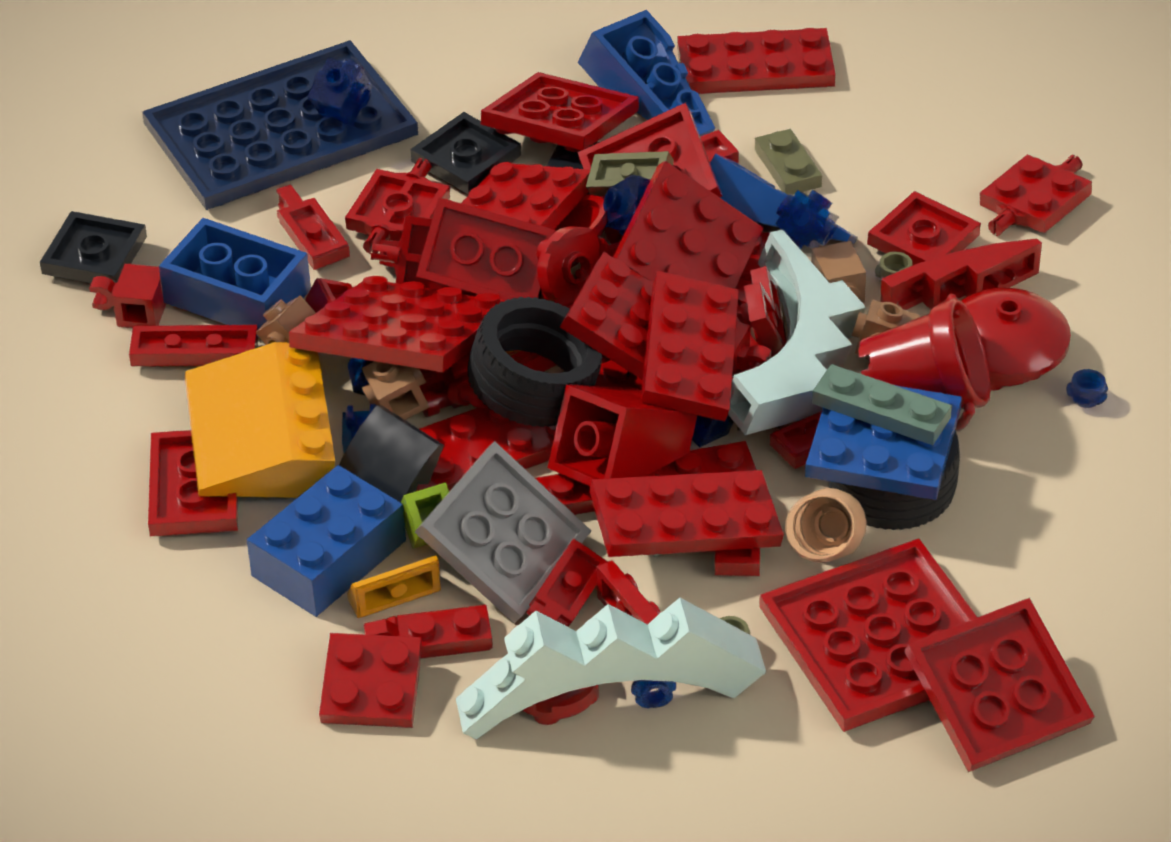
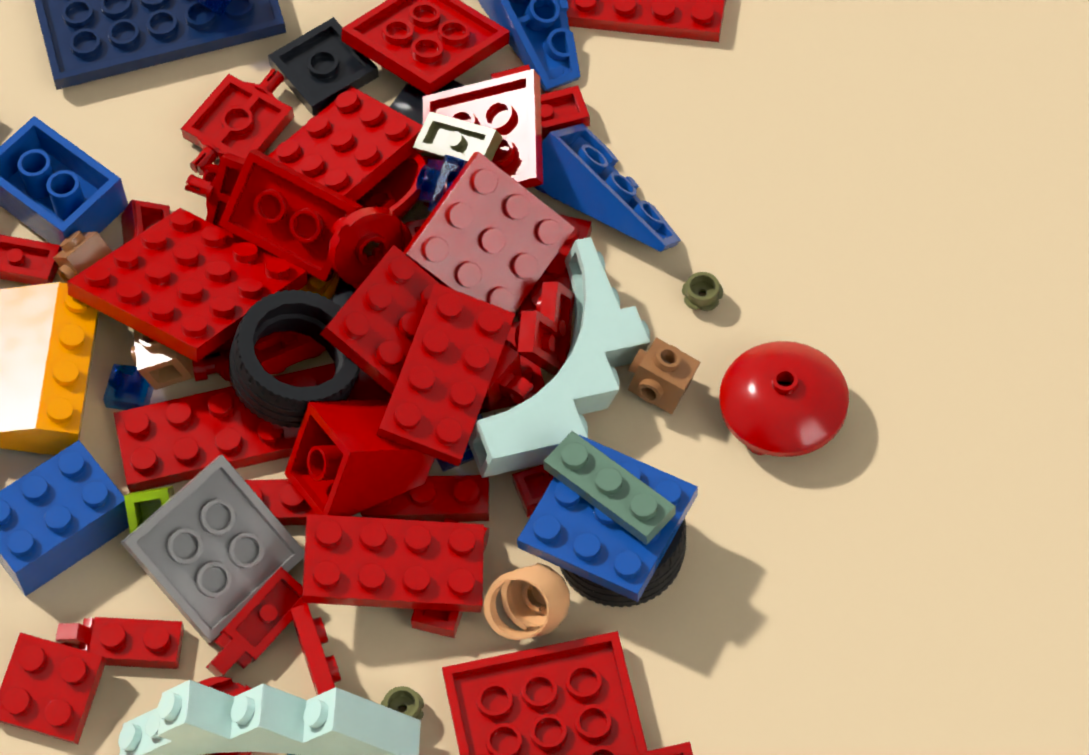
camera: 15 degrees right, 15 degrees up
(310, 228) = (146, 134): red hinge -> none
(391, 454) = (132, 439): black slope -> none
(395, 587) = (102, 584): light orange slope -> none
(788, 162) = (639, 133): olive plate -> none
(821, 219) = (620, 227): clear blue brick -> none
(840, 263) = (641, 287): medium nougat brick -> none
(923, 229) = (745, 251): red plate -> none
(934, 355) = (687, 431): red piece -> none
(963, 273) = (778, 311): red slope -> none
(1035, 194) = (875, 220): red plate -> none
(1087, 388) = (851, 467): clear blue plate -> none

